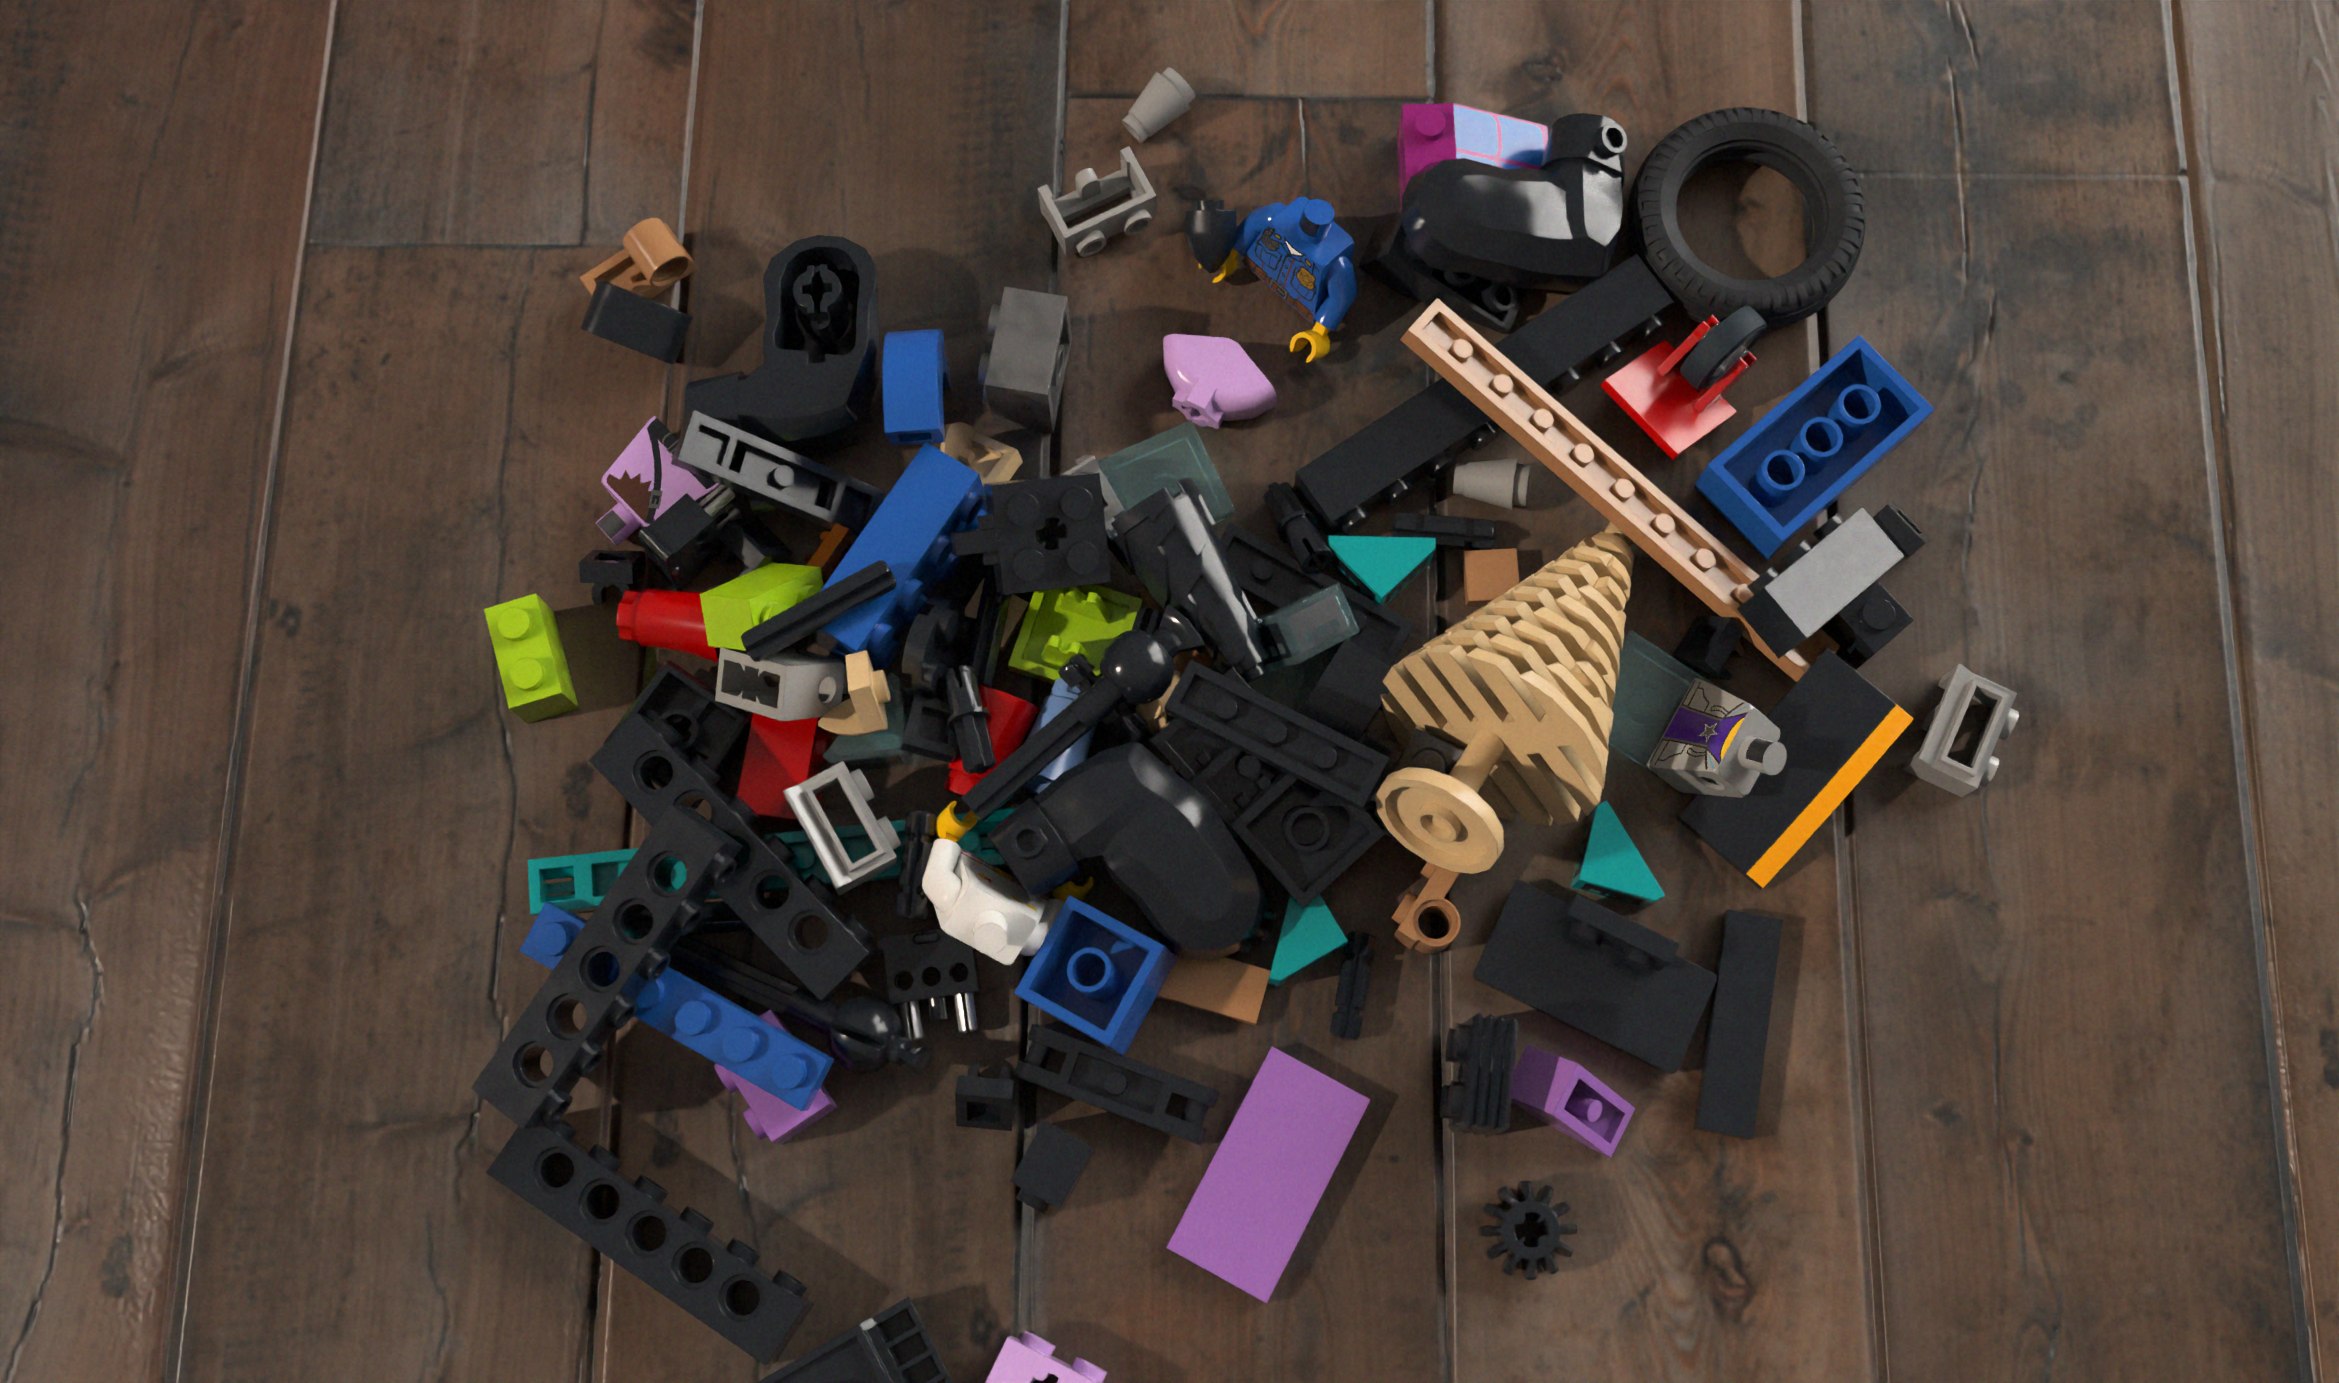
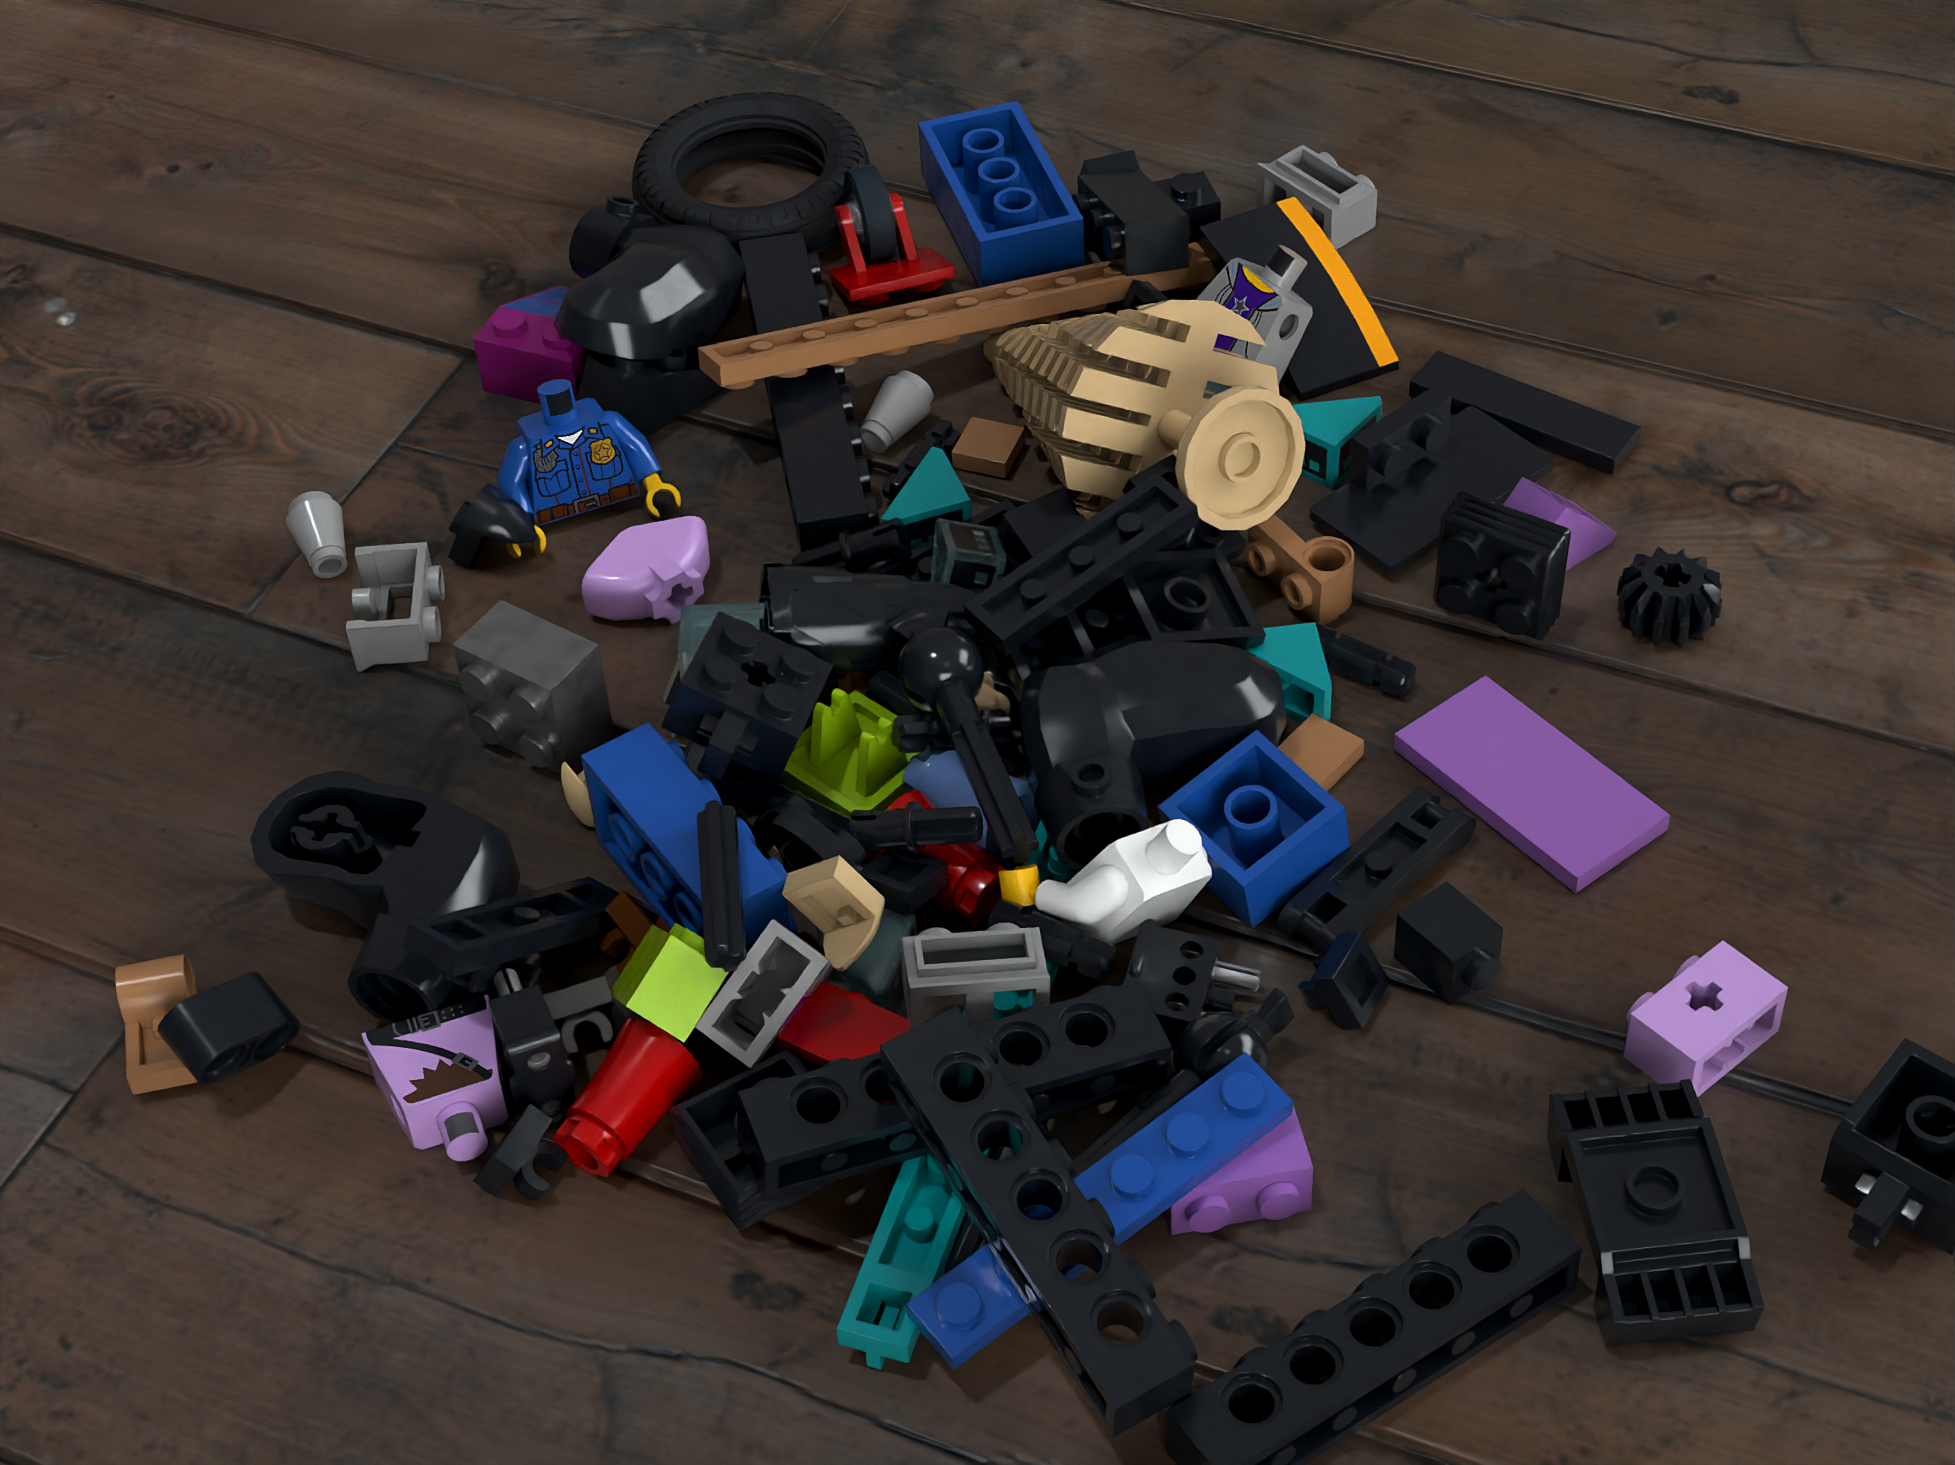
camera: 65 degrees left, 30 degrees down
(531, 658) = (577, 1263): lime brick -> none
(913, 386) = (509, 737): blue arch -> none

